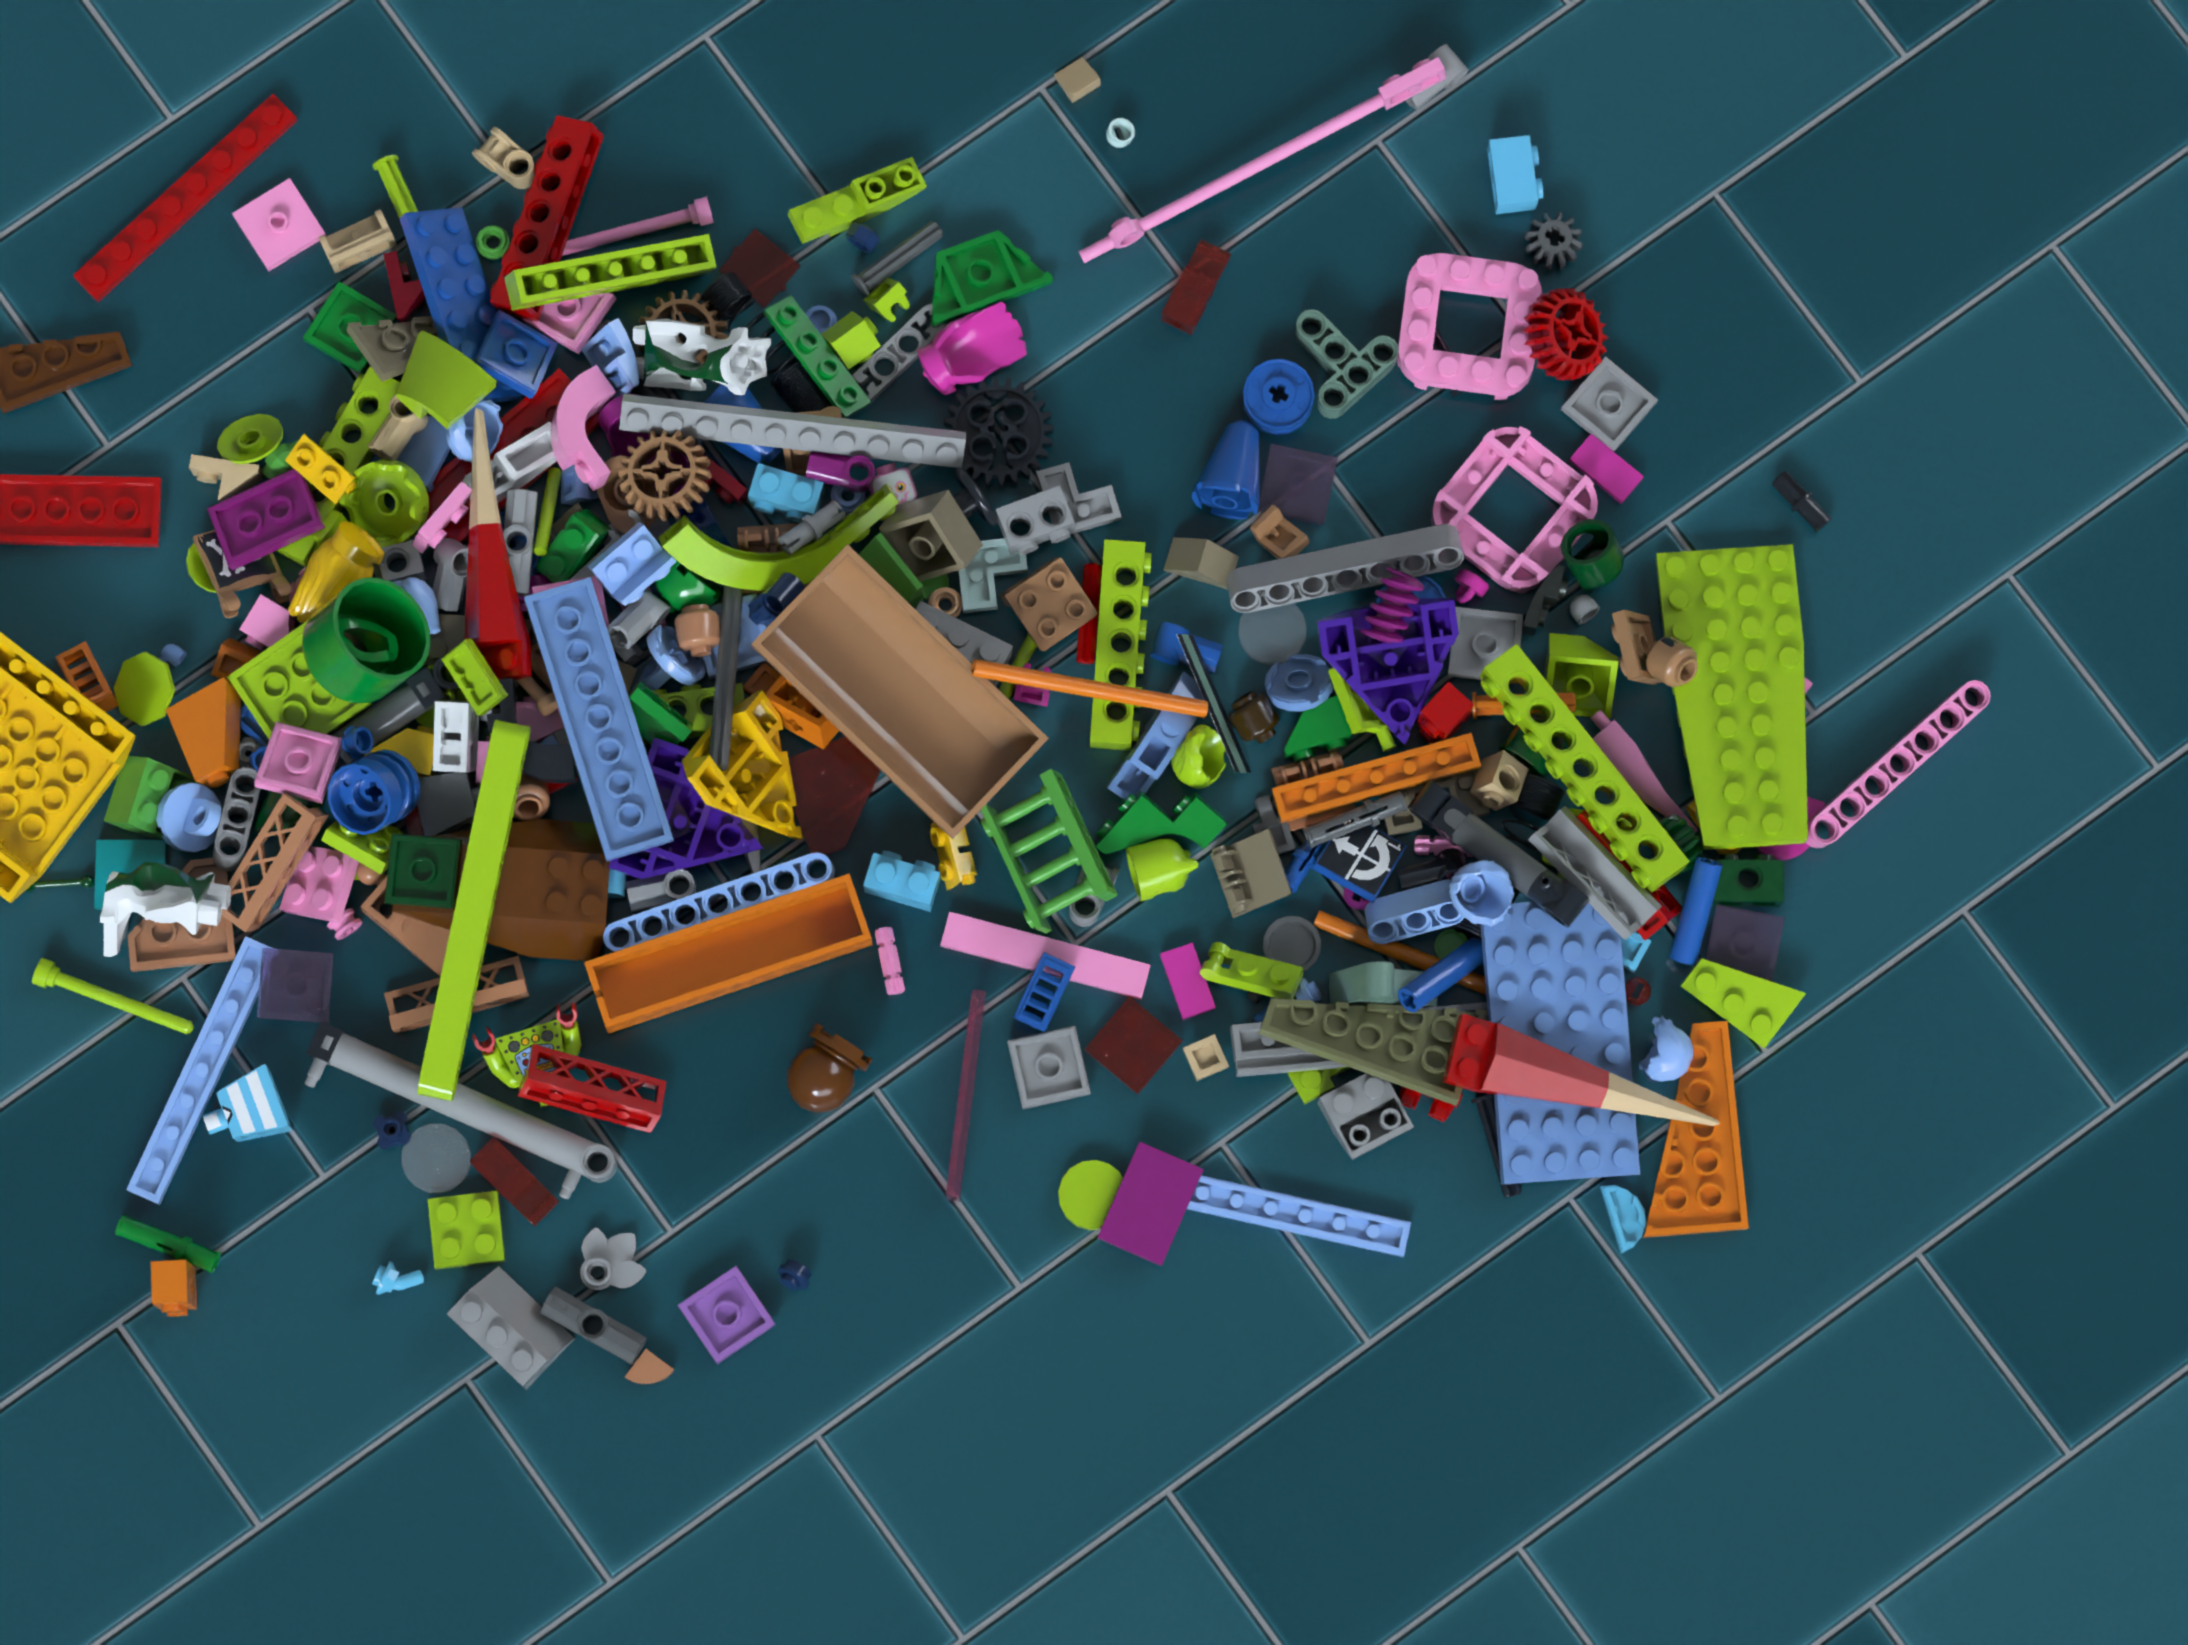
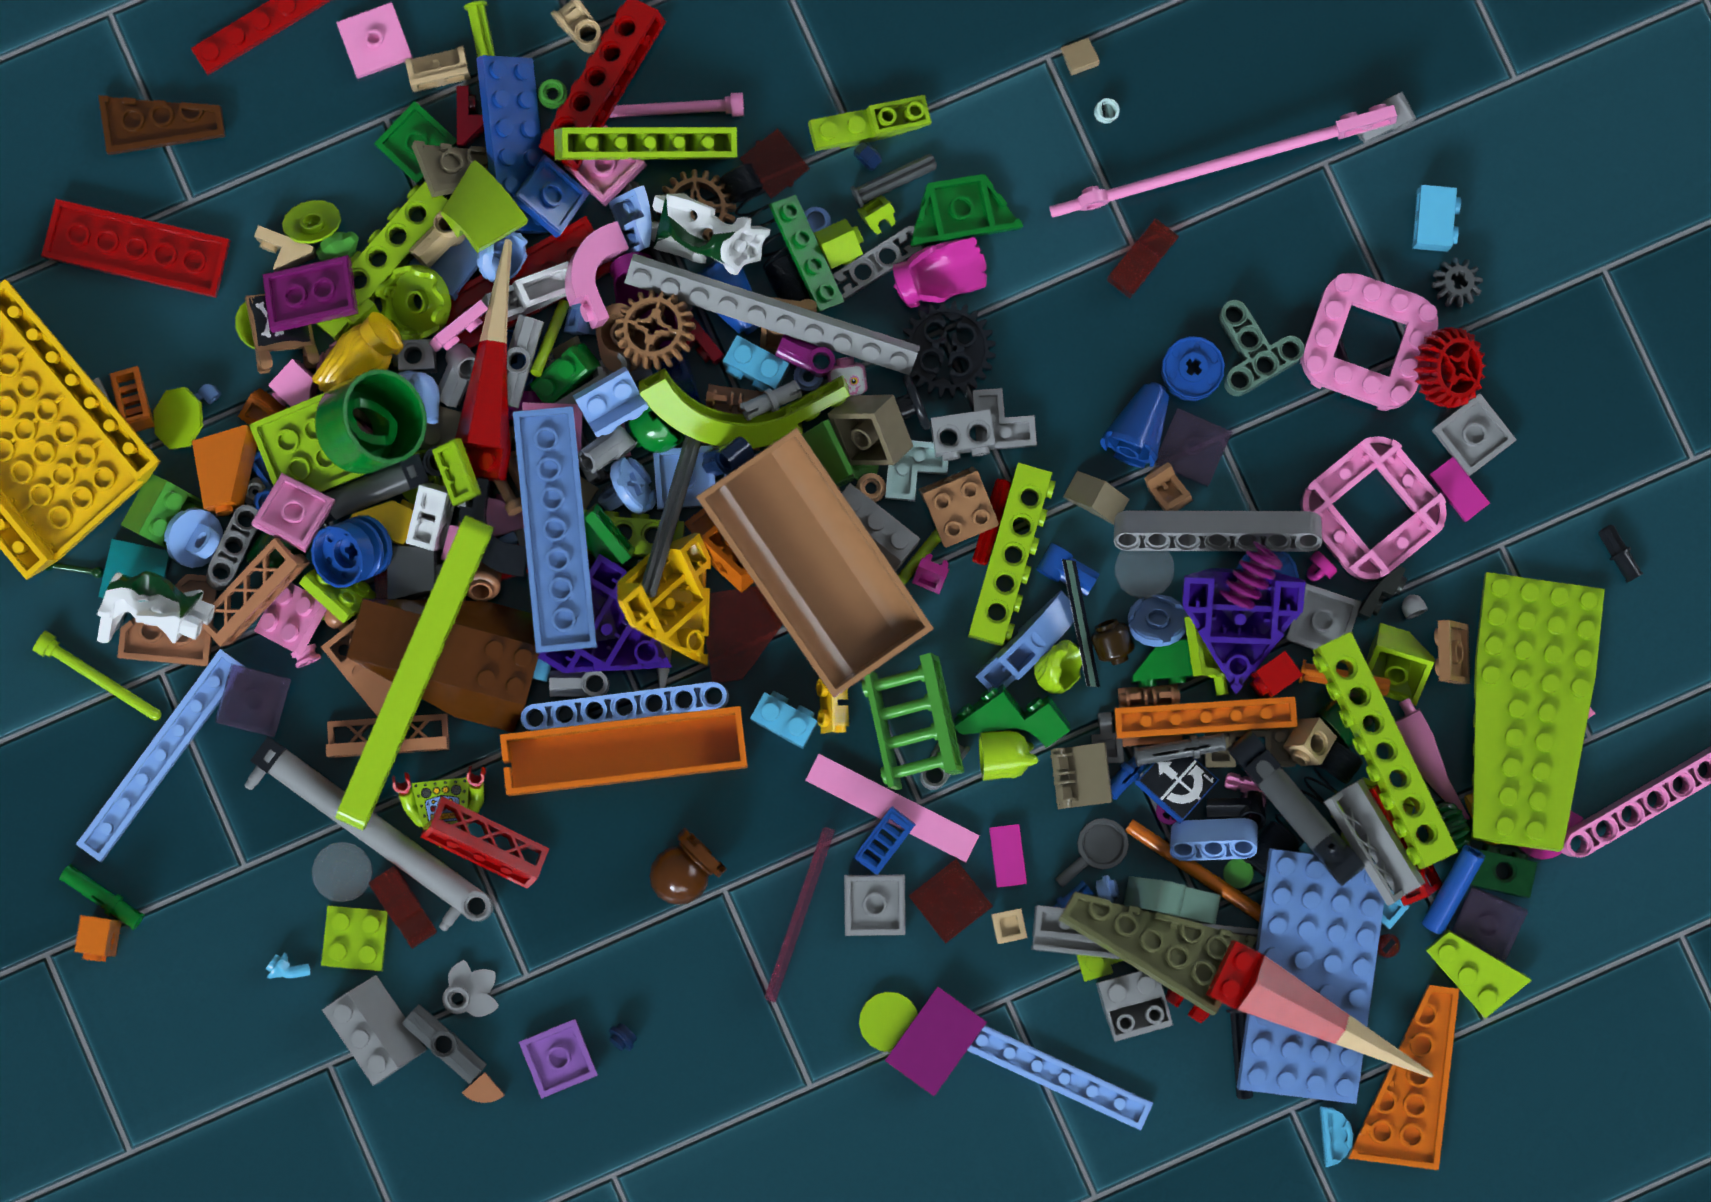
camera: 10 degrees right, 5 degrees up
(249, 1108) = (194, 796): medium azure torso -> none
(320, 469) = (364, 263): yellow hinge -> none
(357, 741) = (346, 505): blue plate -> none
(399, 1137) = (316, 846): dark blue plate -> none
(423, 871) = (379, 629): dark green tile -> none
(697, 630) = (655, 468): nougat head -> none
(889, 961) = (759, 784): bright pink axle -> none
(1089, 688) = (977, 592): orange piece -> none
(1251, 972) = (1064, 861): lime plate -> none
(1441, 975) = (1225, 900): blue piece -> none
(1480, 885) = (1275, 833): light blue hair -> none
(1599, 560) = (1434, 569): dark green piece -> none
(1669, 1055) = (1402, 1008): light blue hair -> none
(1671, 661) = (1479, 672): medium nougat head -> none

